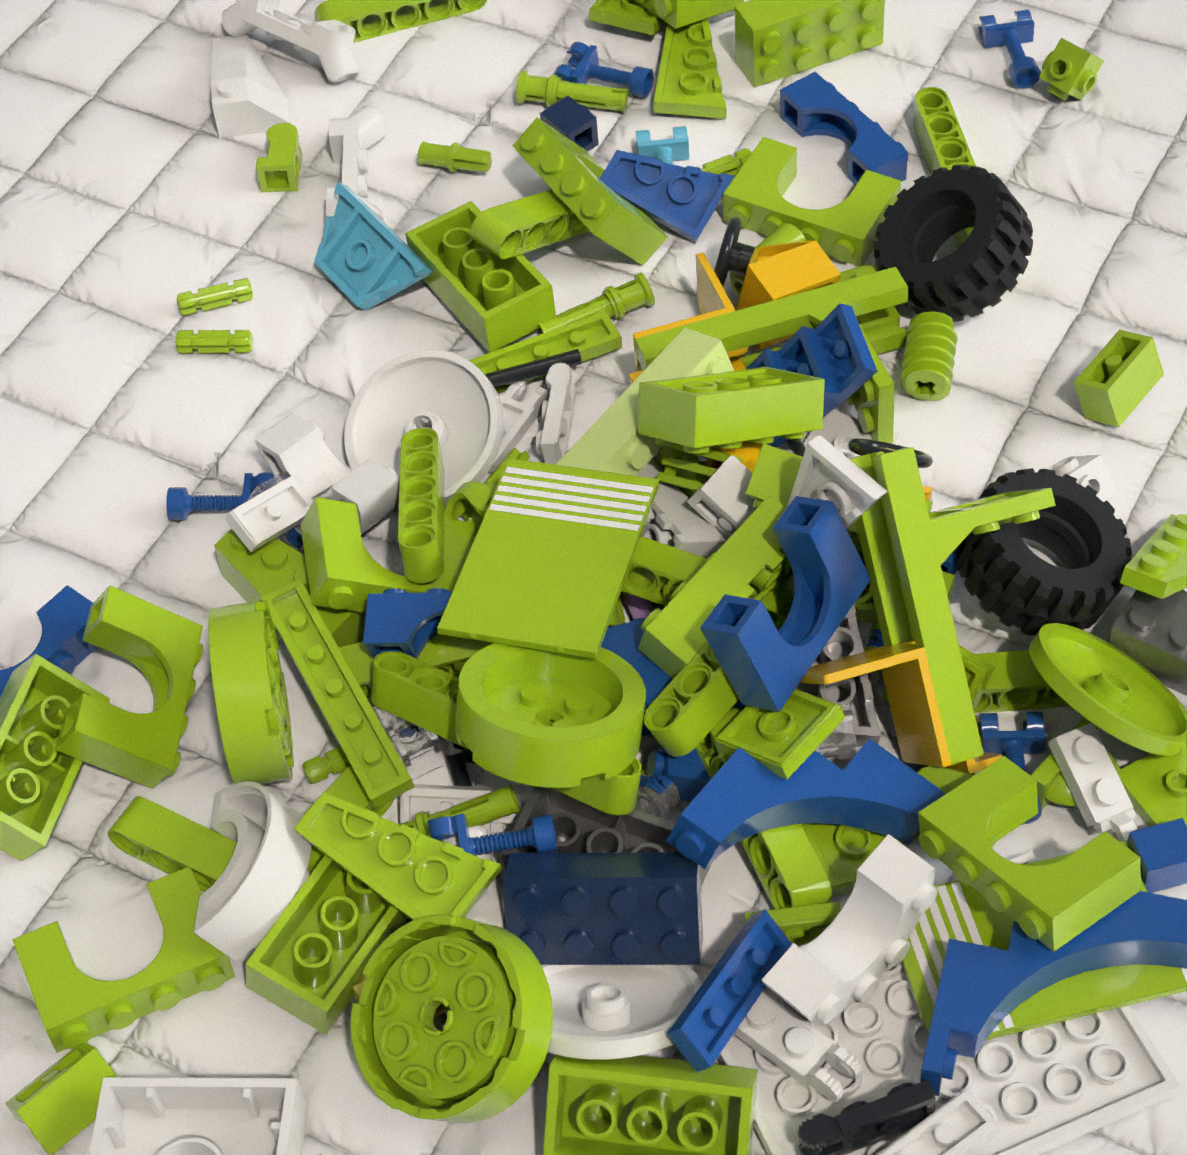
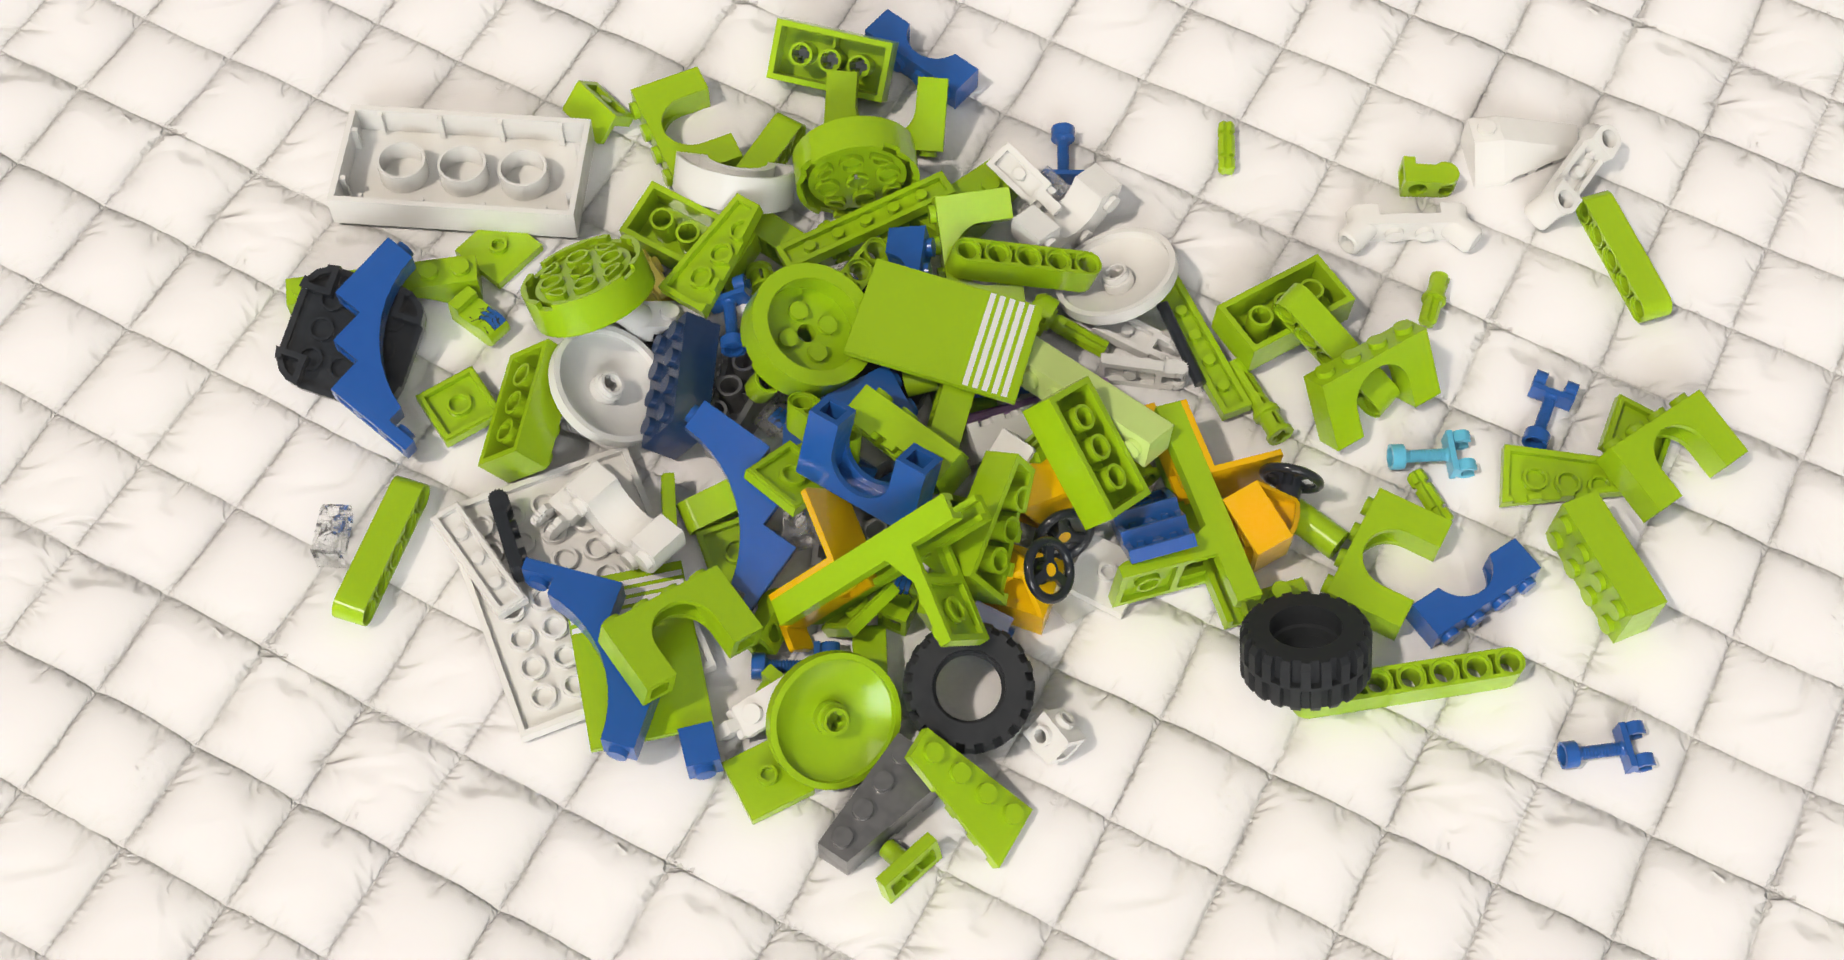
camera: 85 degrees right, 10 degrees up
(214, 296) = (1273, 145): lime axle -> none
(365, 253) = (1310, 232): medium azure wing -> none
(552, 89) = (1519, 373): lime pin -> none
(573, 121) = (1470, 381): dark blue brick -> none
(667, 192) = (1383, 445): blue wing -> none
(729, 991) = (594, 445): blue plate -> none
(833, 477) = (951, 479): white wing -> none
(929, 356) = (1199, 637): lime piece -> none
(1070, 70) = (1564, 789): lime brick -> none
(1119, 378) = (1170, 779): lime brick -> none

